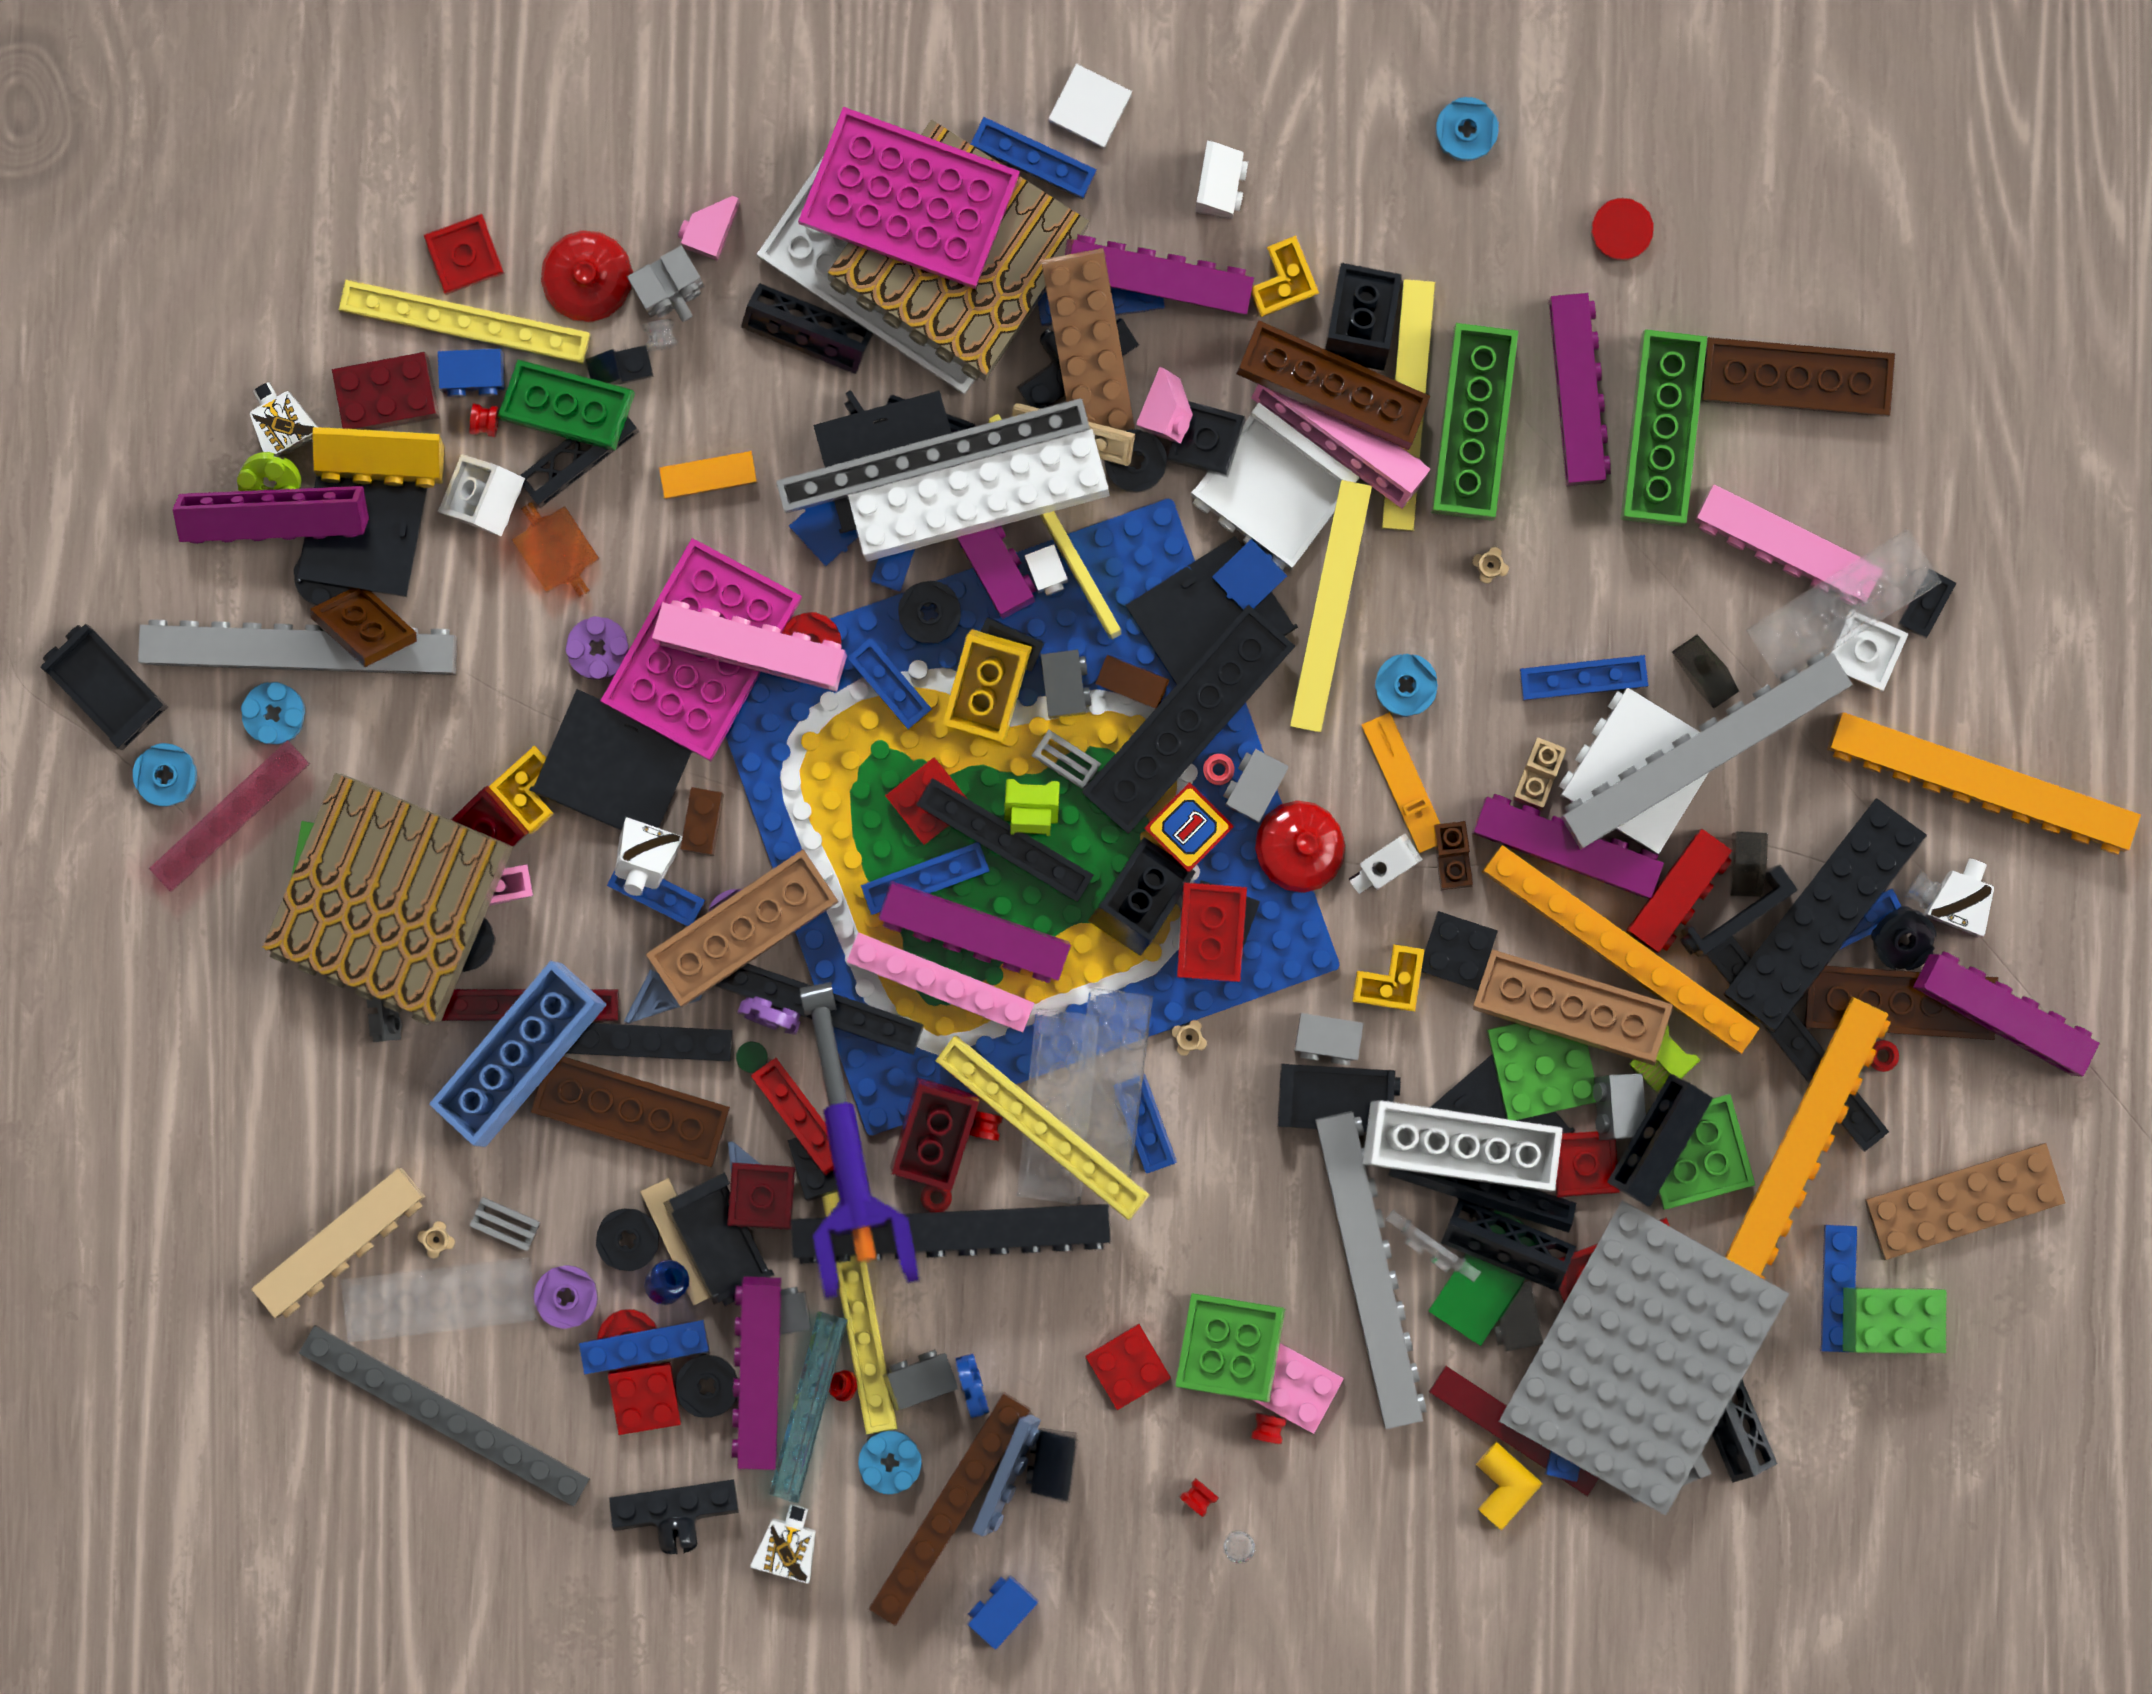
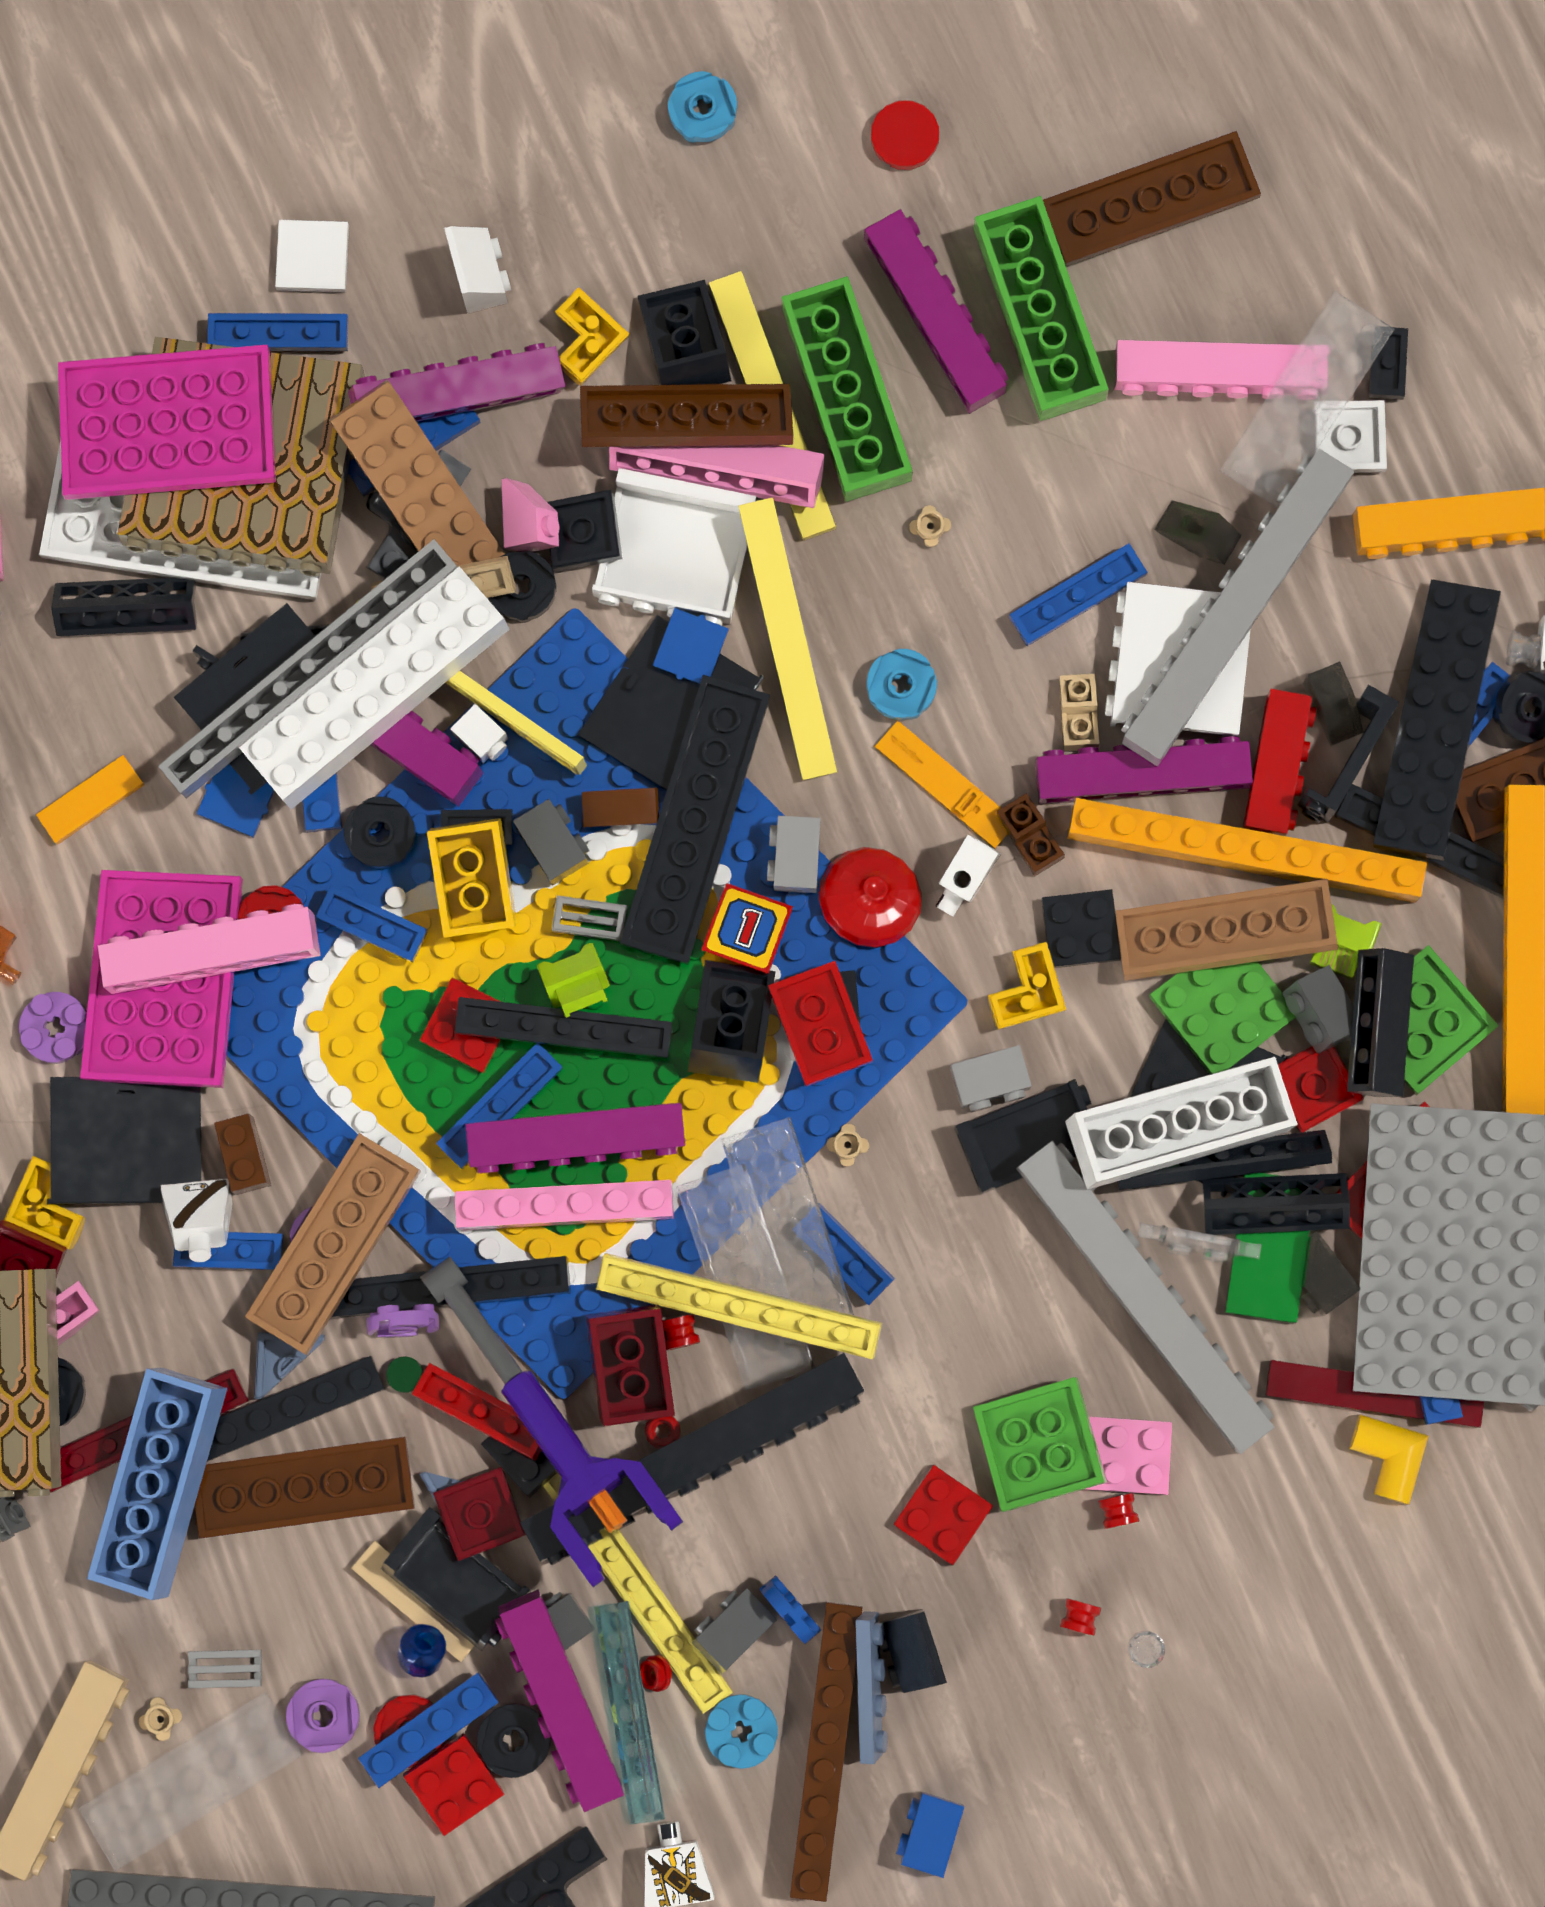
camera: 20 degrees left, 5 degrees down
(622, 1256) = (340, 1628): black plate -> none
(1218, 759) = (750, 845): coral plate -> none

